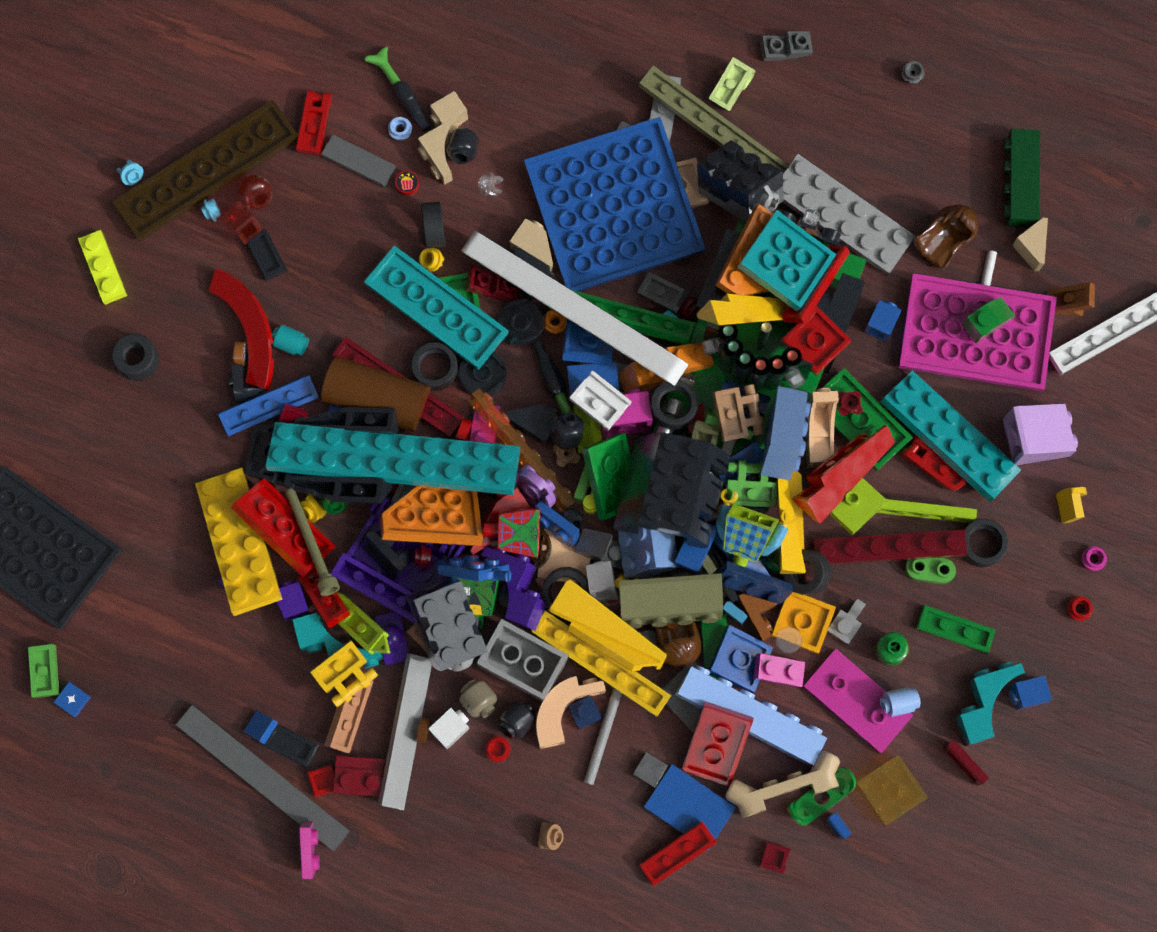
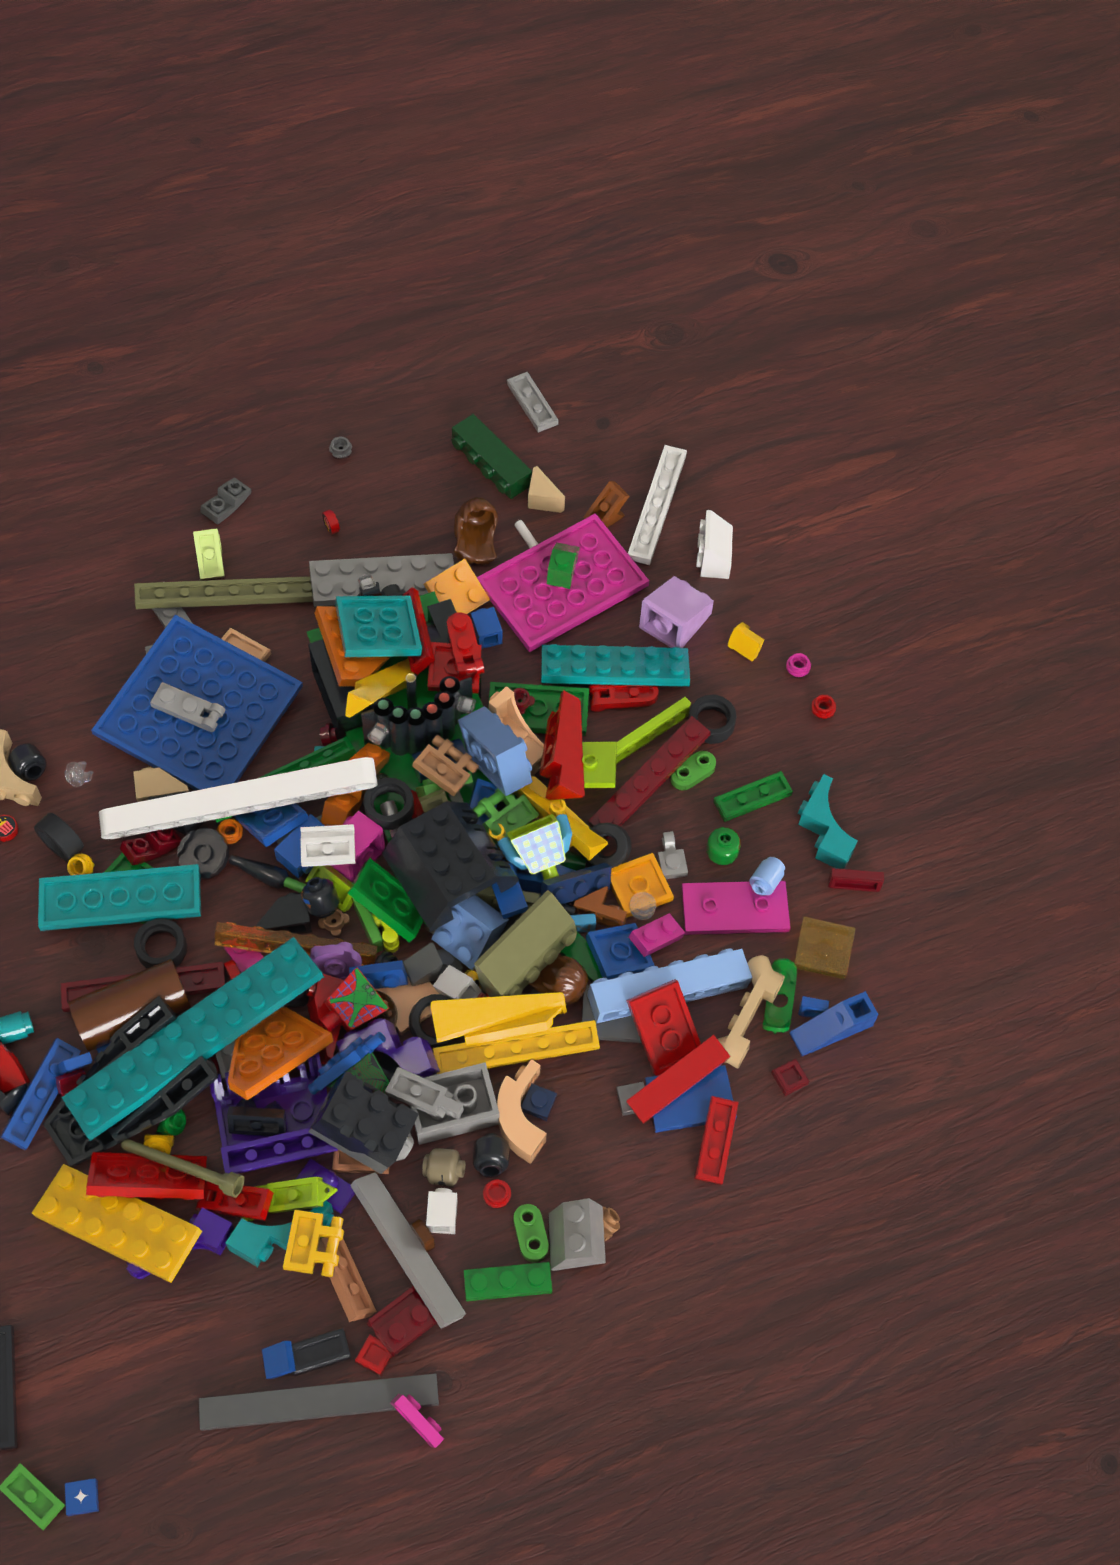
camera: 45 degrees left, 15 degrees down
(305, 404) = (74, 1063): none -> blue tile
(422, 556) = (291, 1094): dark red plate -> none
(450, 814) = (507, 1281): none -> green plate
(488, 378) = (202, 929): black tile -> none
(495, 796) = (529, 1232): none -> bright green plate
(503, 639) = (423, 1094): none -> light grey hinge
(520, 829) = (576, 1235): none -> light grey slope
(602, 737) = (570, 1106): light grey bar -> none
(604, 199) = (187, 707): none -> light grey plate
(662, 292) = (298, 739): dark grey plate -> none
(690, 788) = (678, 1079): none -> red tile
(739, 181) = (282, 610): black piece -> none
(837, 330) = (464, 644): none -> red plate
(840, 852) = (835, 1024): none -> blue slope
(847, 131) = (330, 521): none -> red tile
(887, 272) = (460, 586): none -> light orange plate
(1030, 693) = (850, 791): blue brick -> none
(1102, 155) = (532, 402): none -> light grey tile
(1123, 406) = (714, 546): none -> white slope

